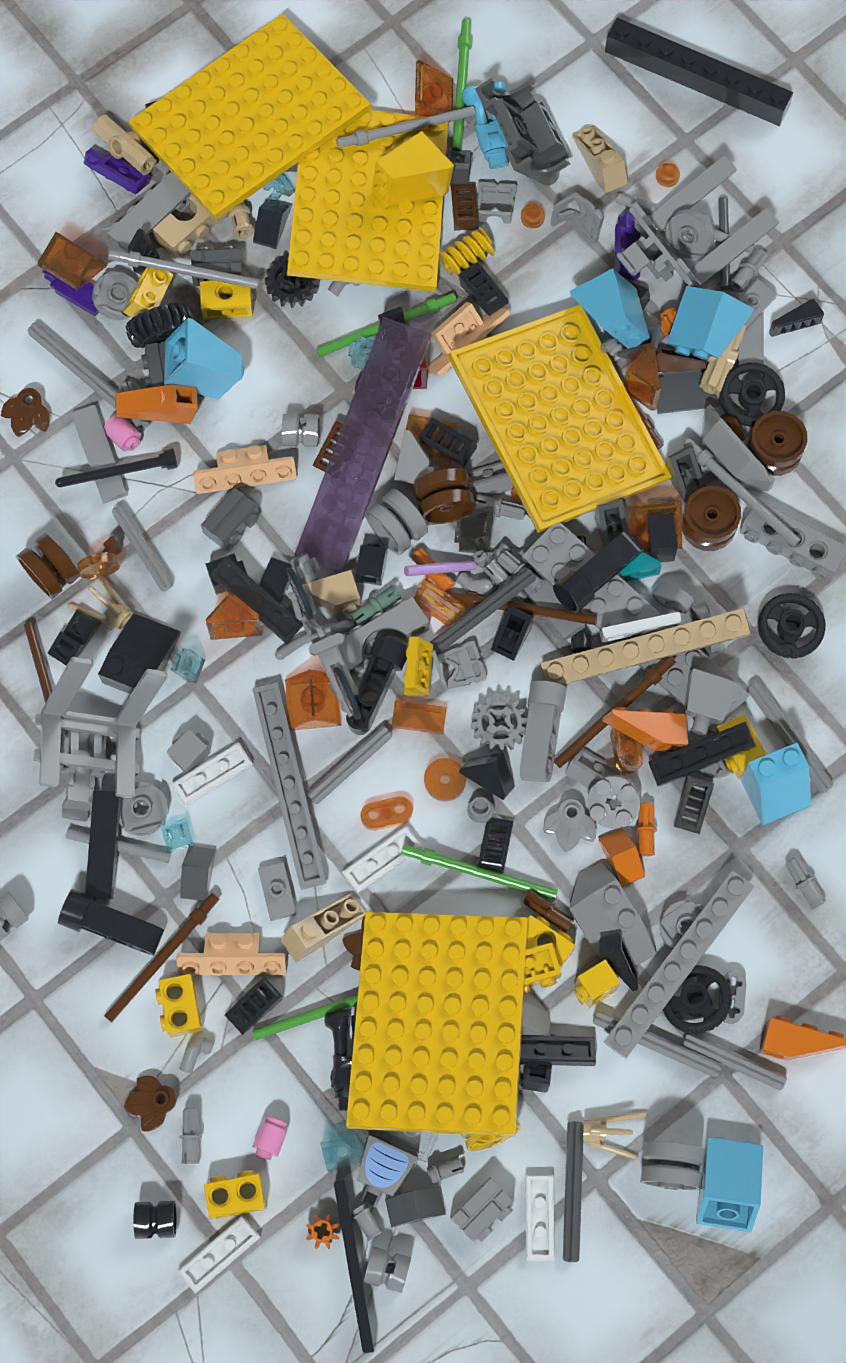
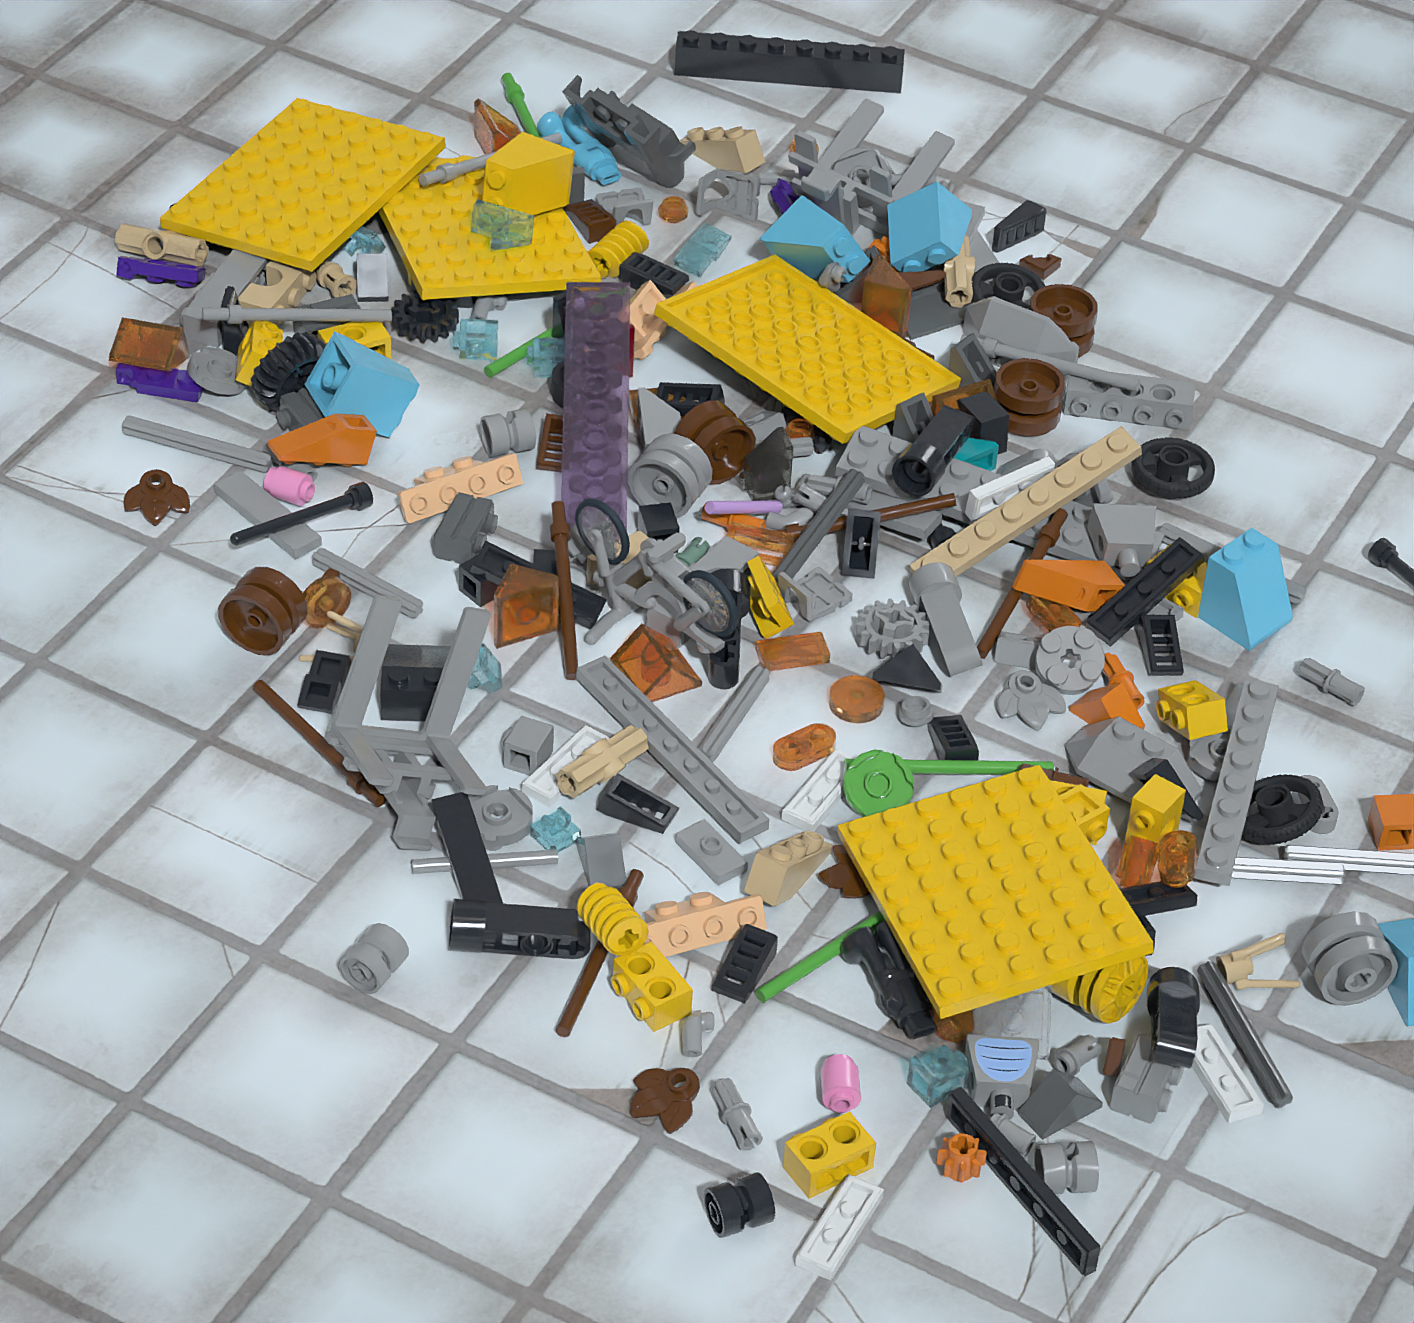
camera: 25 degrees left, 30 degrees down
(165, 952) = (612, 919): none -> yellow piece
(232, 786) = (602, 761): none -> tan piece
(251, 825) = (618, 804): none -> black slope
(283, 563) = (560, 536): none -> reddish brown bar
(320, 320) = (477, 339): none -> clear light blue brick
(376, 220) = (504, 225): none -> clear light blue slope
(417, 876) = (877, 782): none -> bright green tile
(471, 1179) = (1114, 1056): none -> reddish brown tile
(528, 1157) = (1173, 1009): none -> black beam
(534, 270) = (702, 249): none -> clear light blue slope
(567, 1016) = (1137, 861): none -> clear orange brick
(593, 1029) = (1177, 858): none -> clear orange plate
(677, 886) = (1192, 709): none -> yellow brick
(798, 364) = (1041, 266): none -> reddish brown tile

